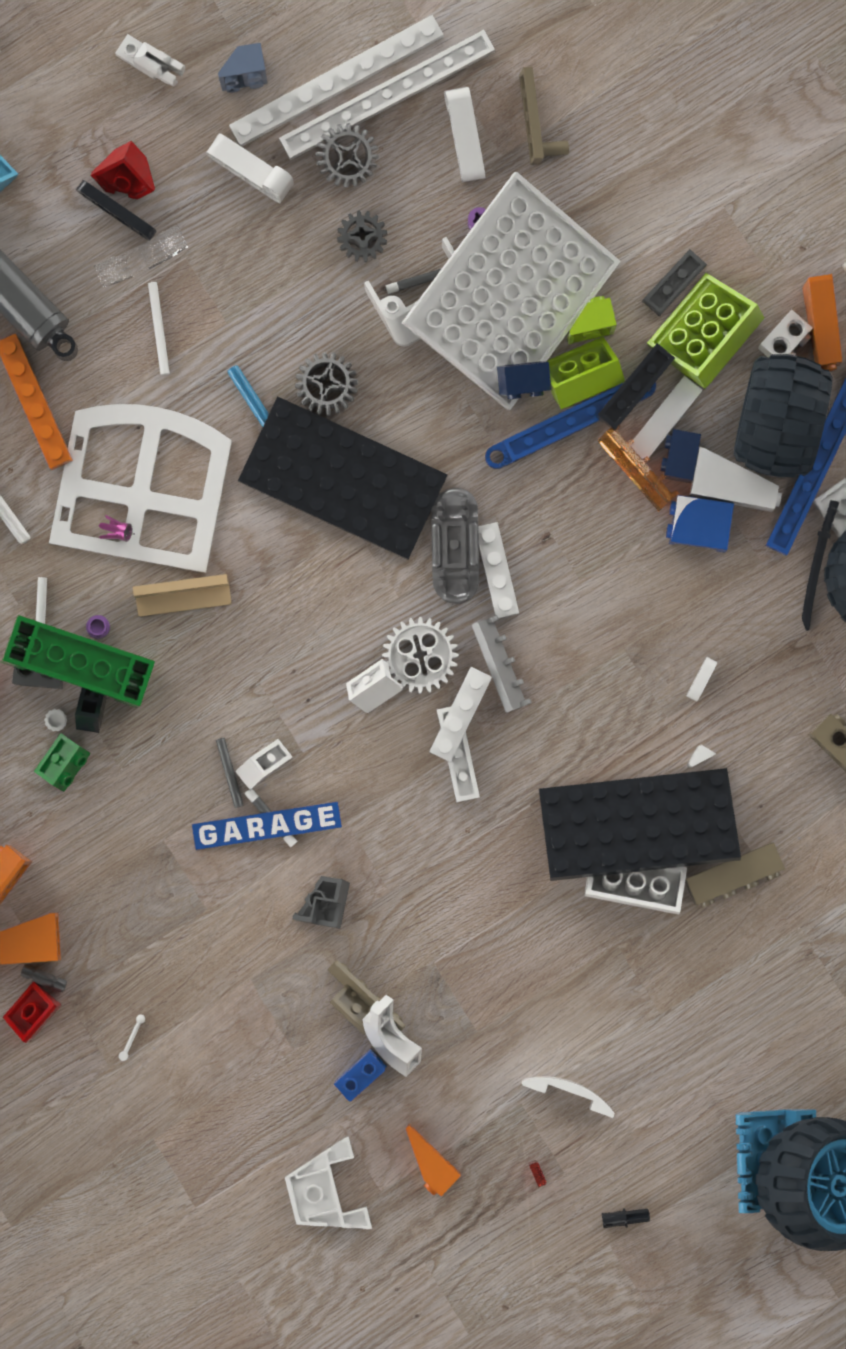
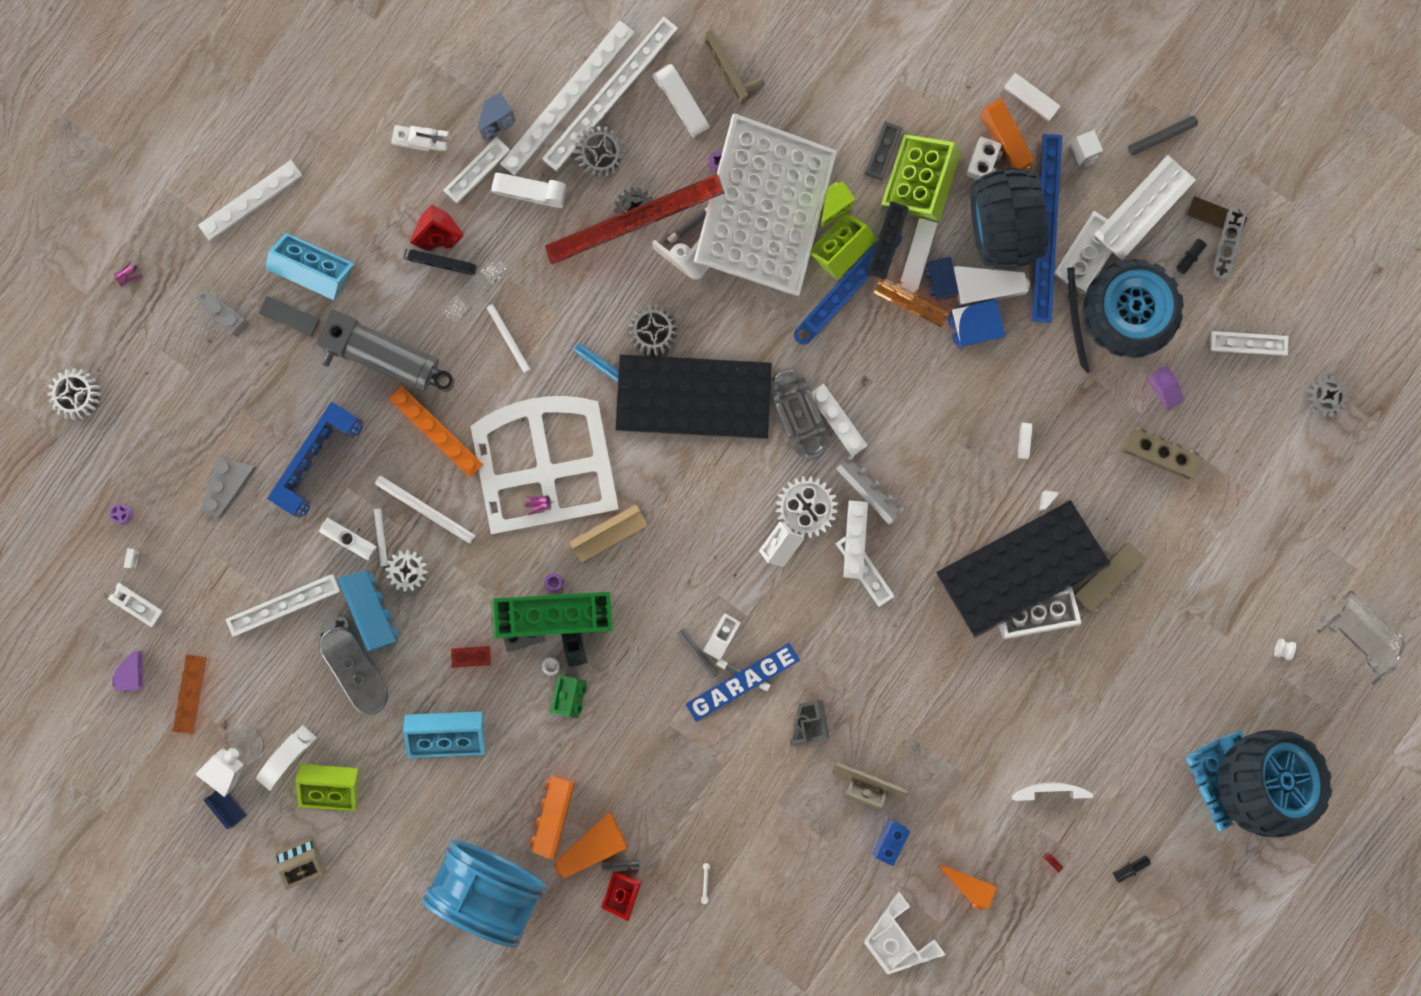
camera: 25 degrees left, 0 degrees up
(41, 599) = (502, 579): white bar -> none
(199, 122) = (477, 170): none -> white plate
(355, 248) = (635, 219): none -> clear red plate
(389, 1040) = (900, 807): white arch -> none
(524, 378) = (801, 267): dark blue brick -> none

